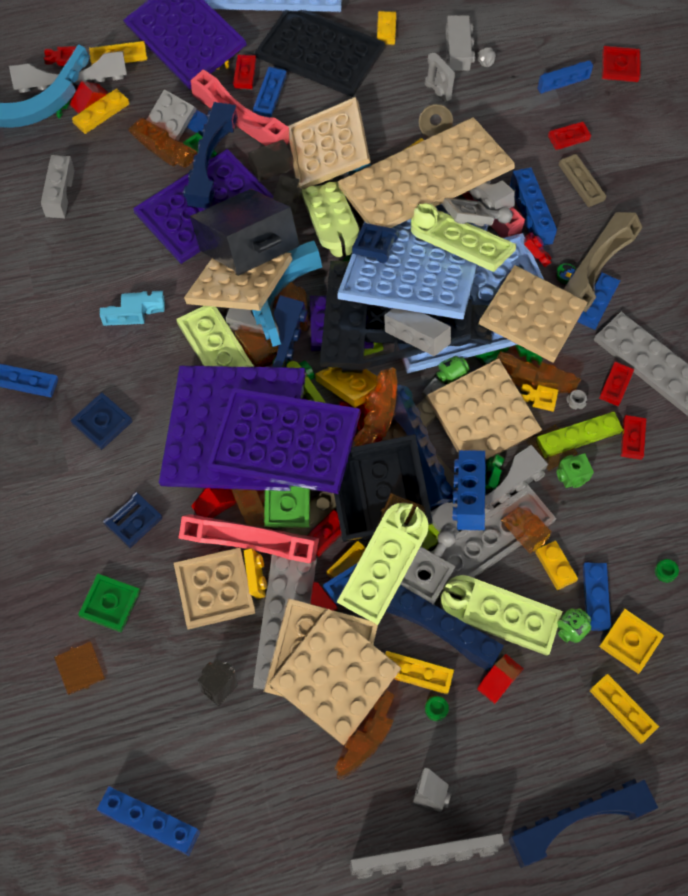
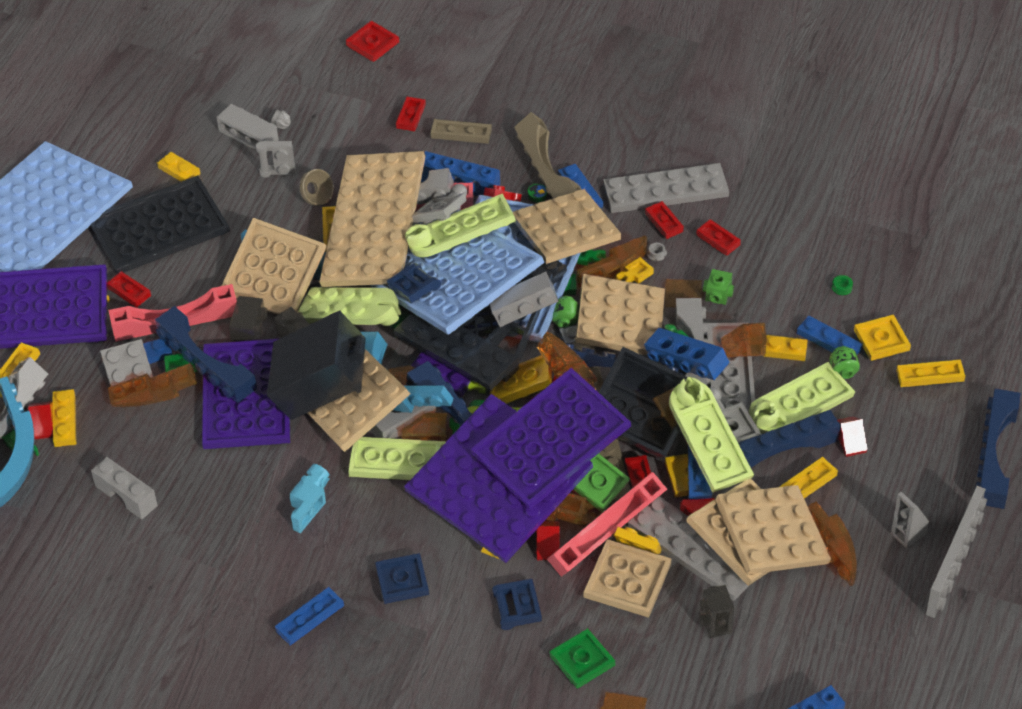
camera: 50 degrees left, 15 degrees down
(269, 92) = (169, 283): blue plate -> none
(436, 708) = (843, 489): green tile -> none
(565, 76) = (350, 82): blue plate -> none
(579, 434) = (687, 268): lime plate -> none

